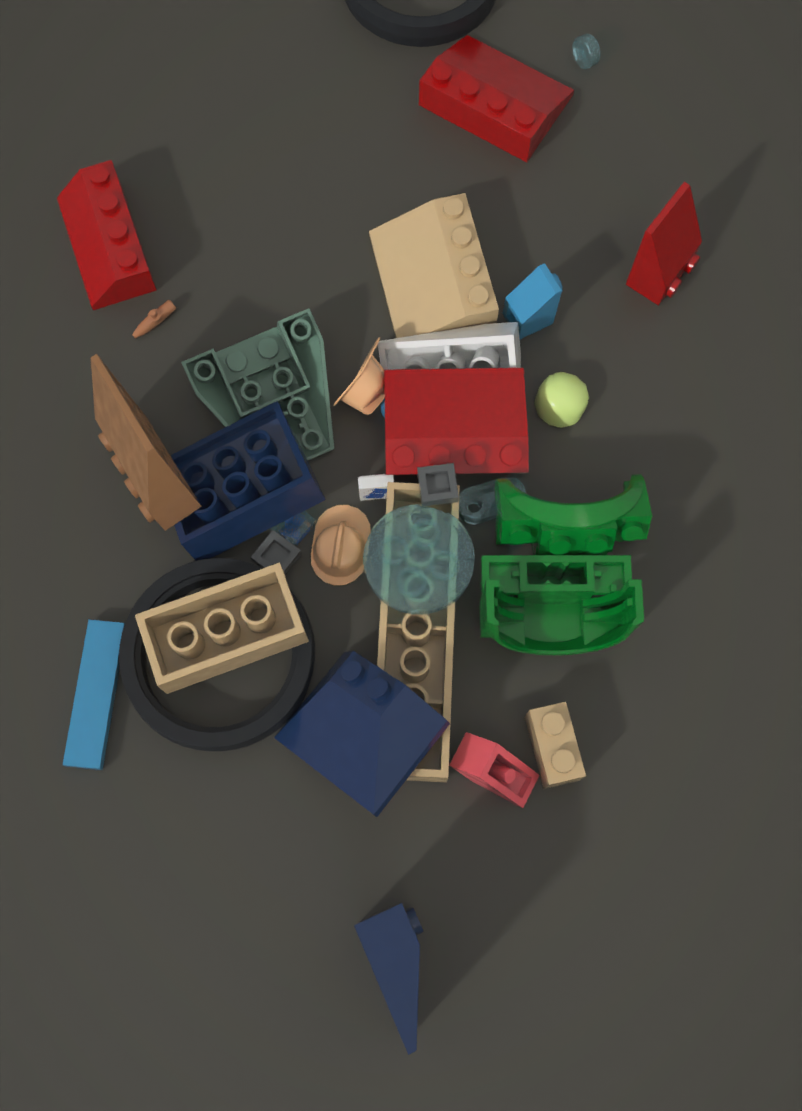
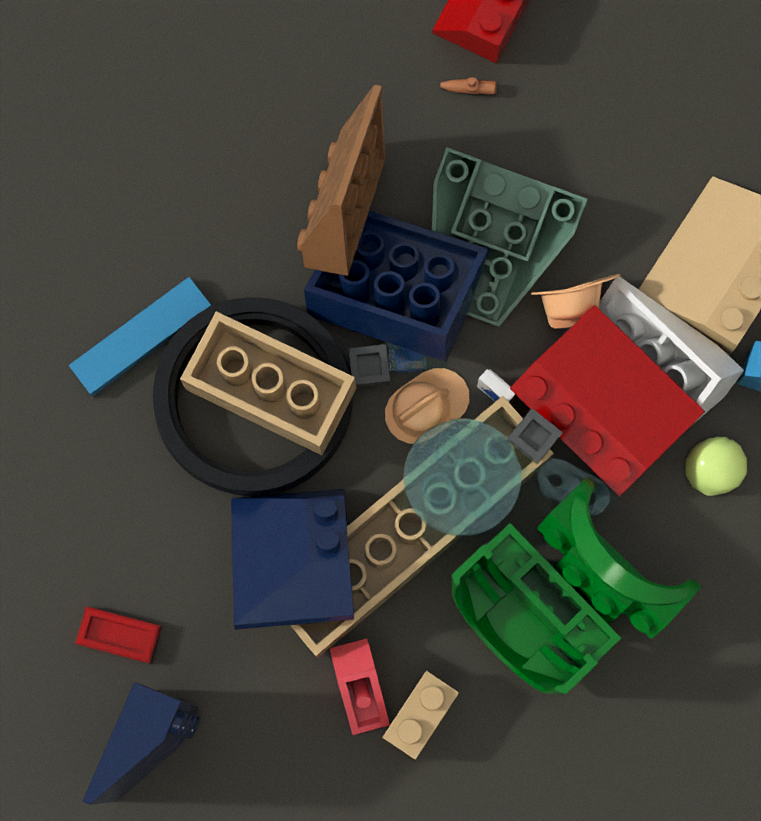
camera: 50 degrees right, 5 degrees up
(293, 913) = (118, 635): none -> red tile

